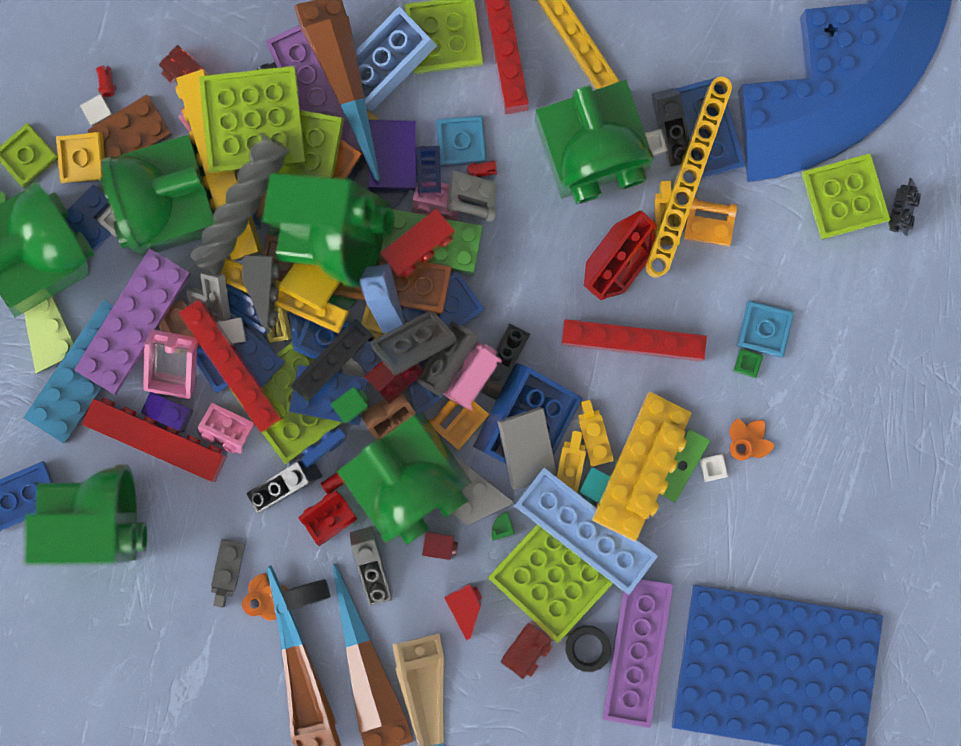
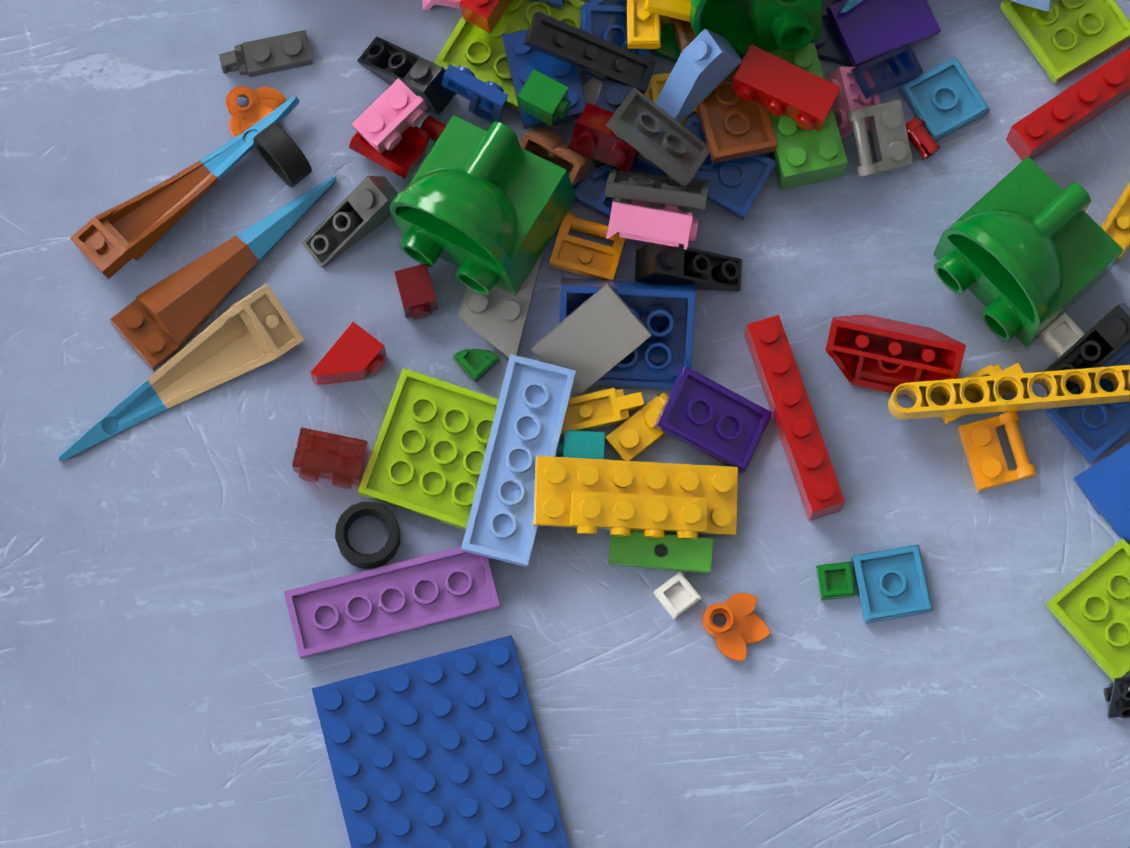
camera: 60 degrees right, 10 degrees down
(314, 512) = (390, 117): none -> bright pink bracket
(611, 392) = (713, 419): none -> dark purple tile

